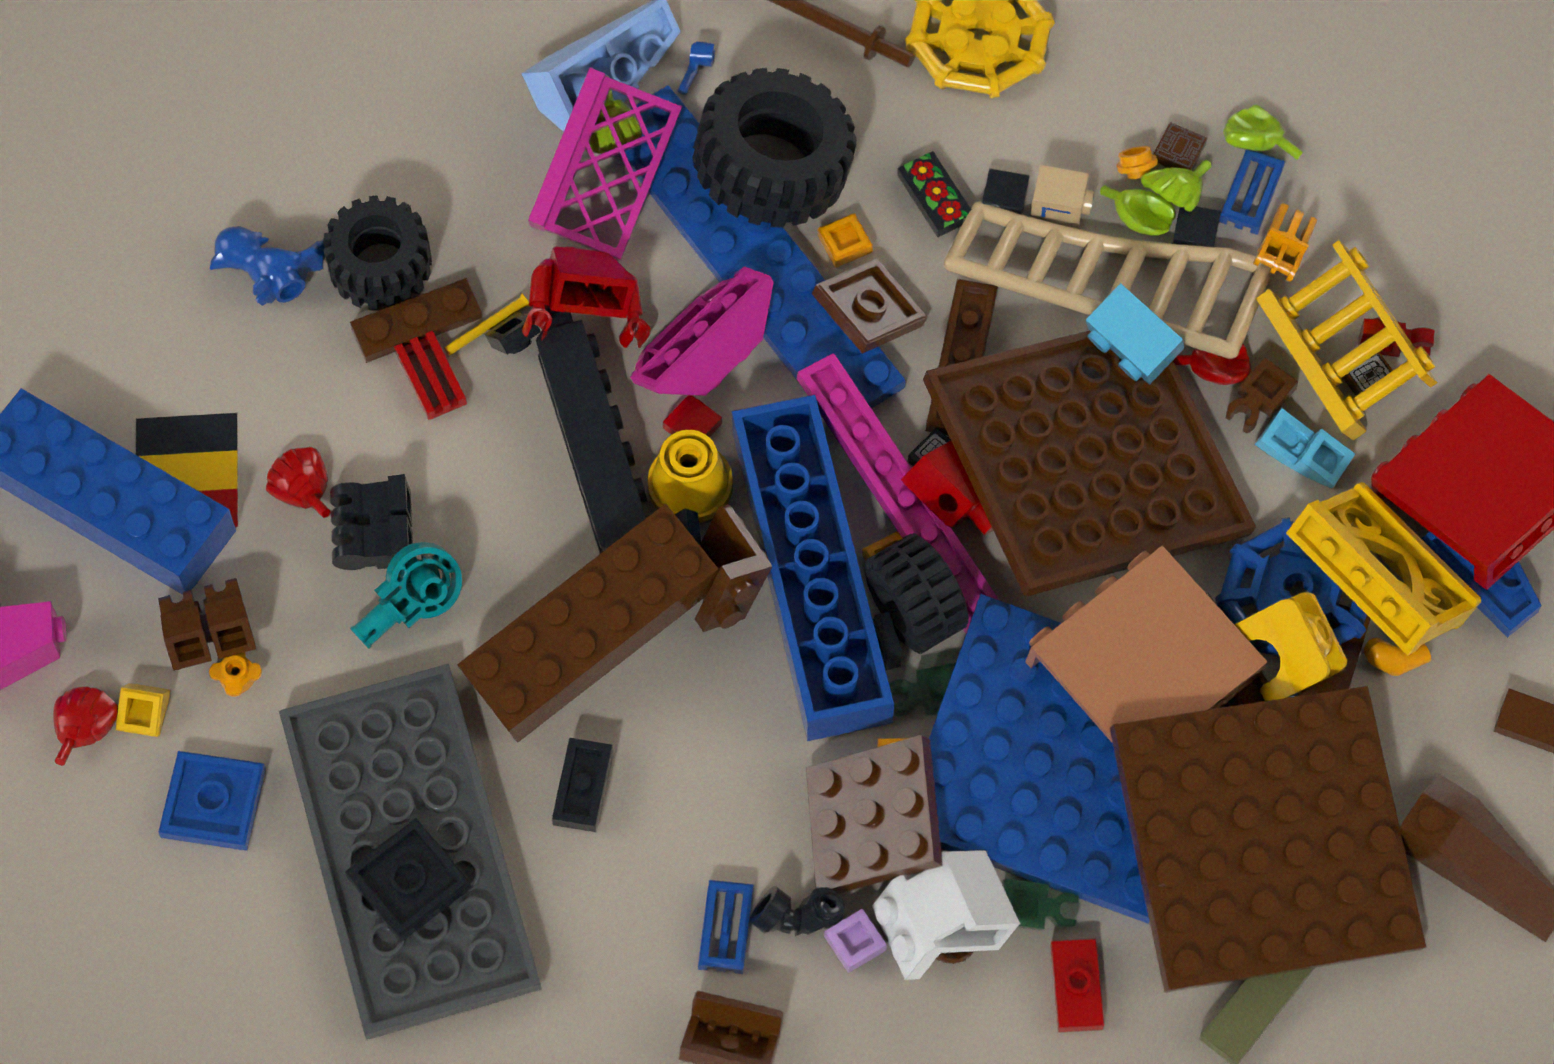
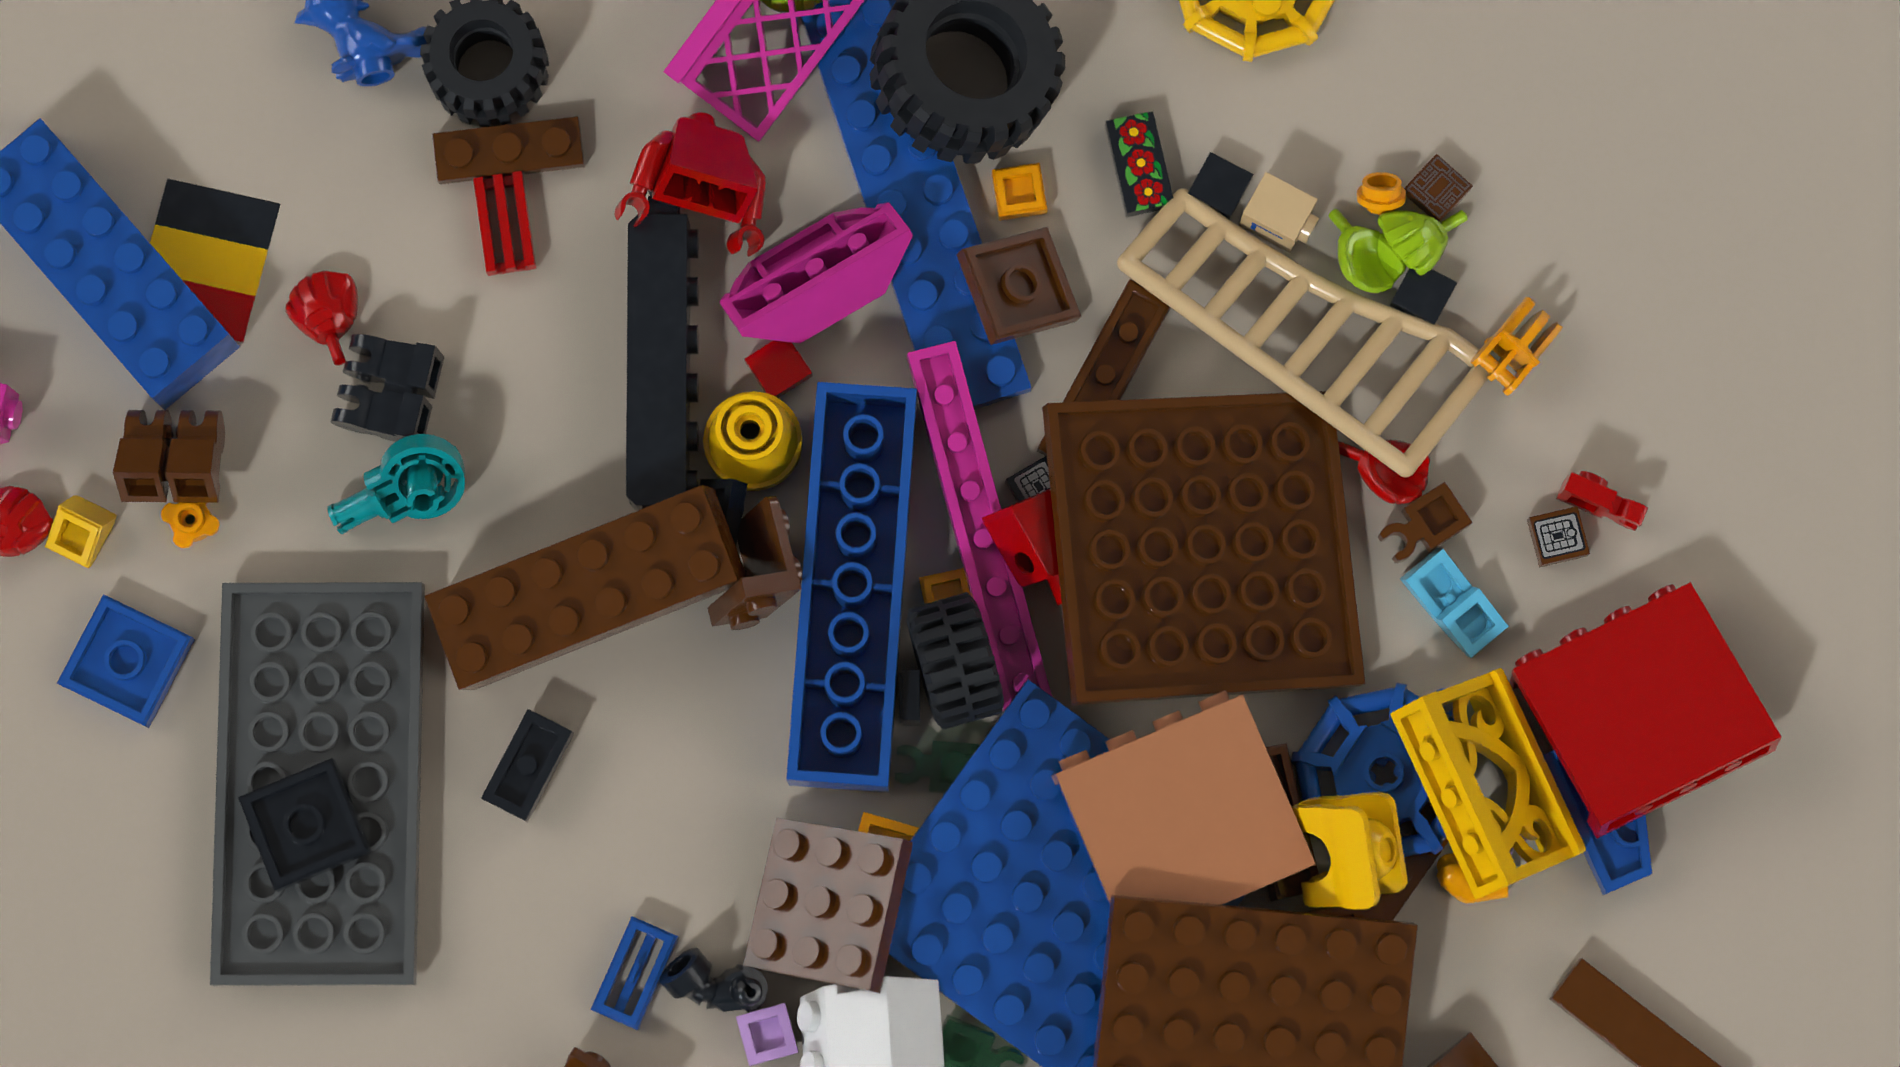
camera: 15 degrees right, 15 degrees up
(486, 325) = (584, 179): yellow piece -> none
(508, 335) = (602, 200): black plate -> none
(1133, 335) = (1298, 422): medium azure piece -> none
(1241, 218) = (1479, 298): blue tile -> none
(1257, 131) = (1532, 194): lime piece -> none
(1327, 376) = (1495, 479): yellow fence -> none

